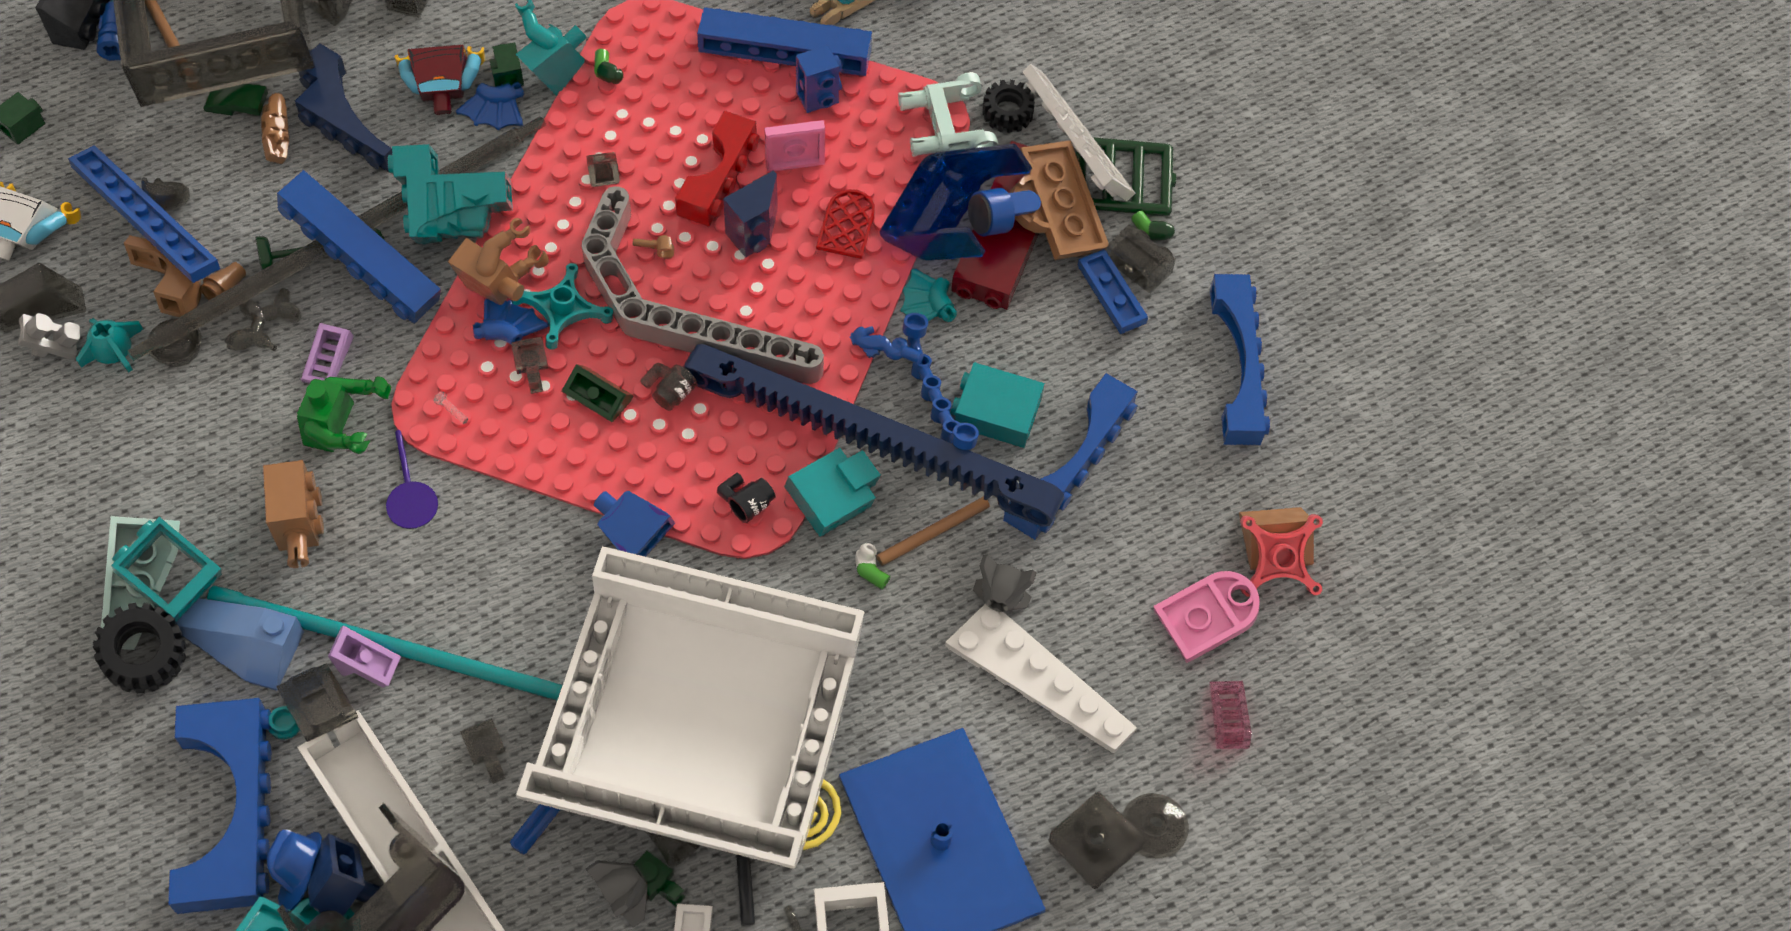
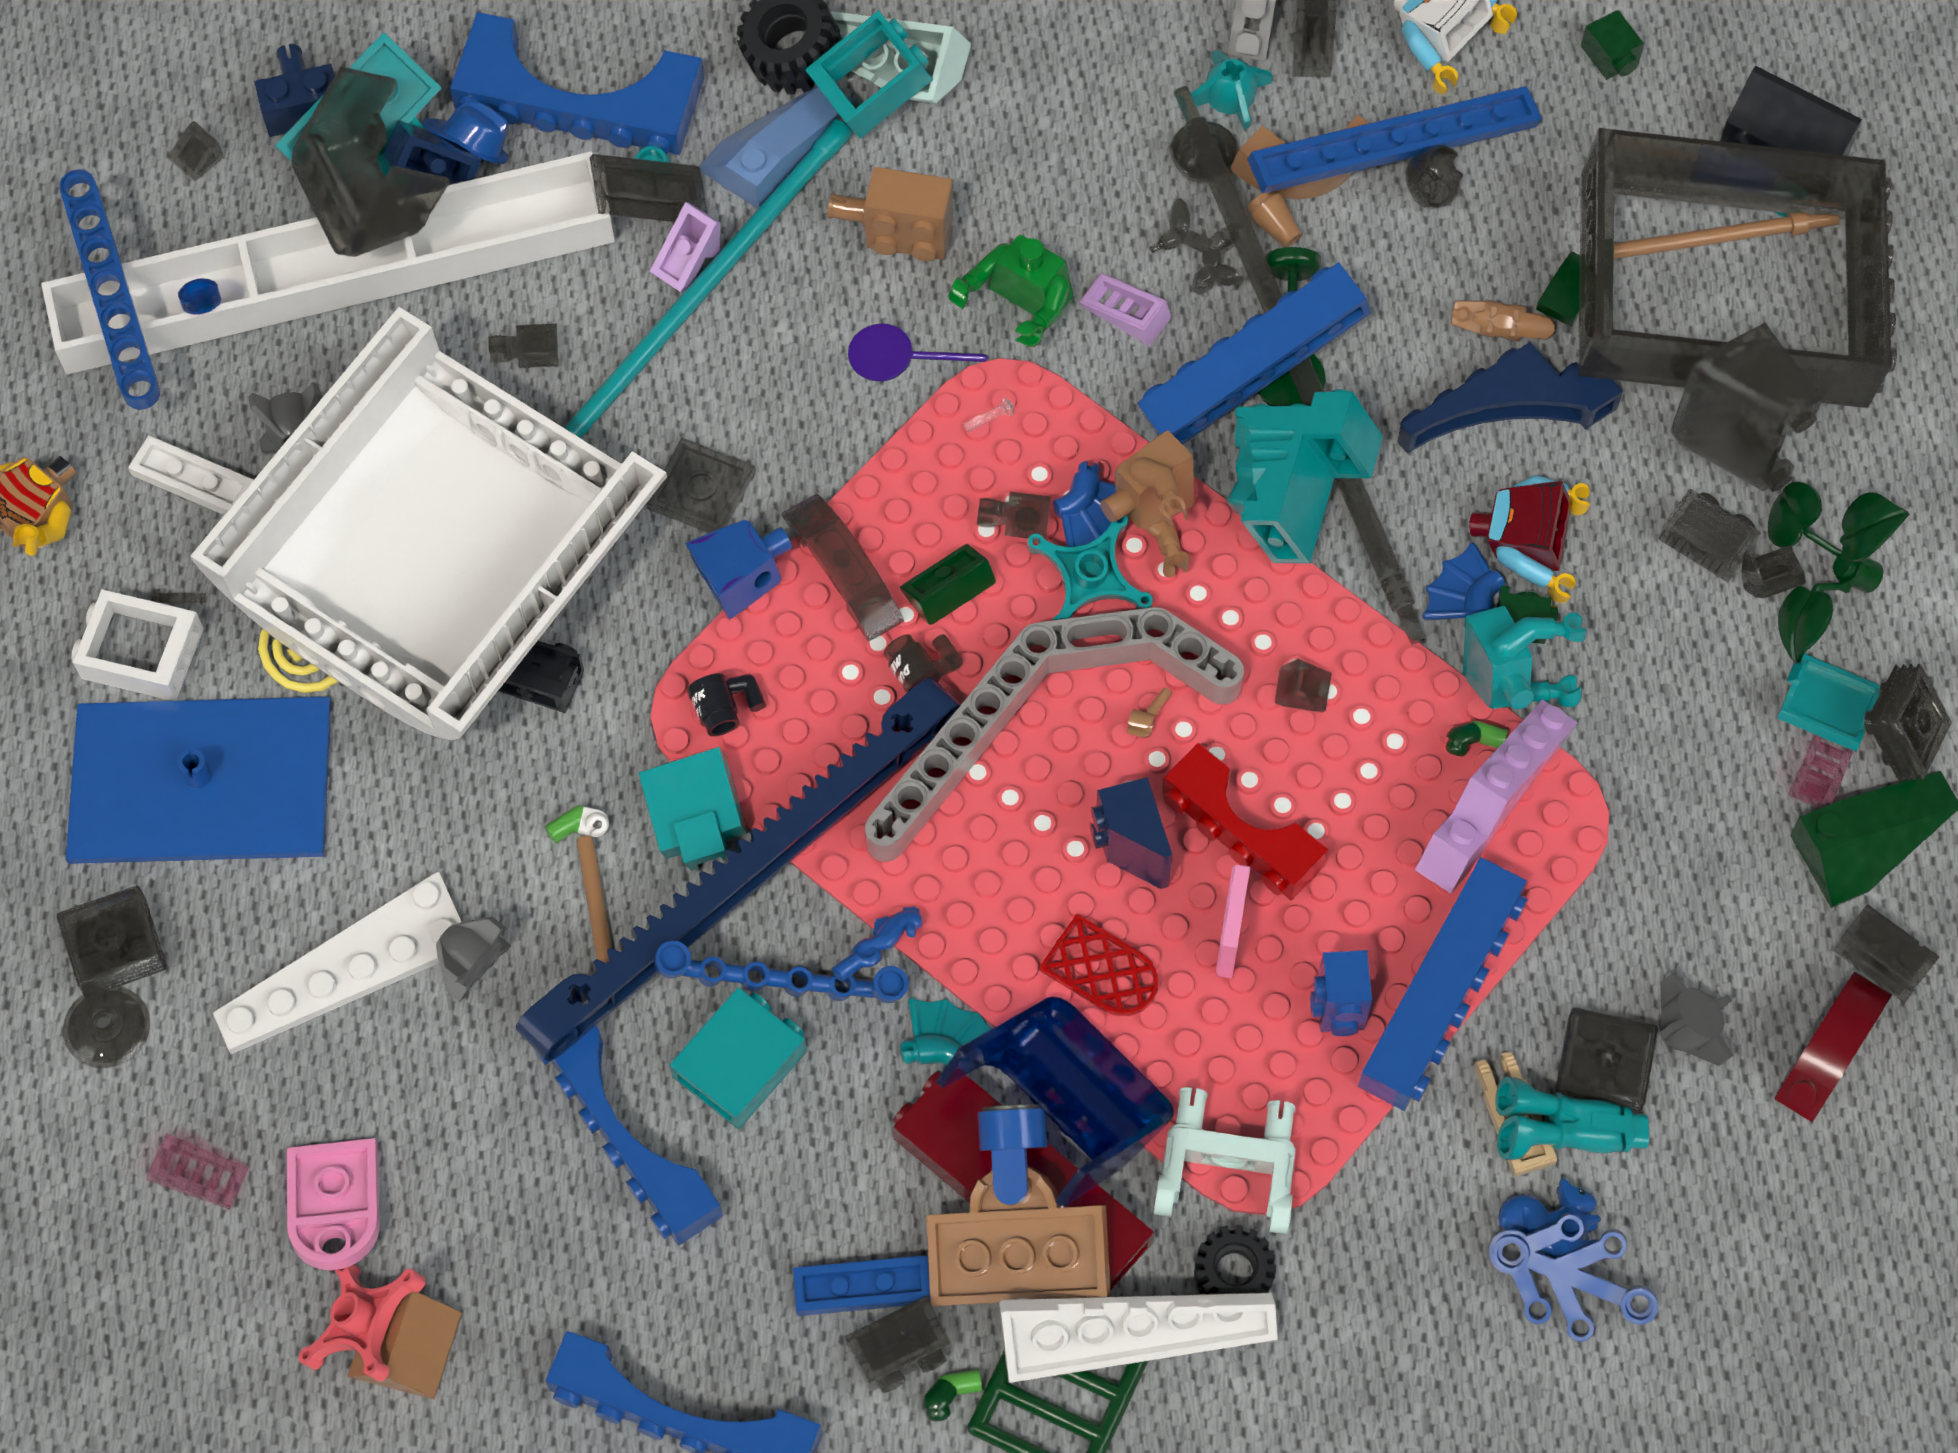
camera: 115 degrees right, 5 degrees up
(564, 584) = (701, 487): none -> clear smoke tile
(602, 460) = (845, 565): none -> clear smoke slope
(655, 37) = (1493, 794): none -> lavender arch

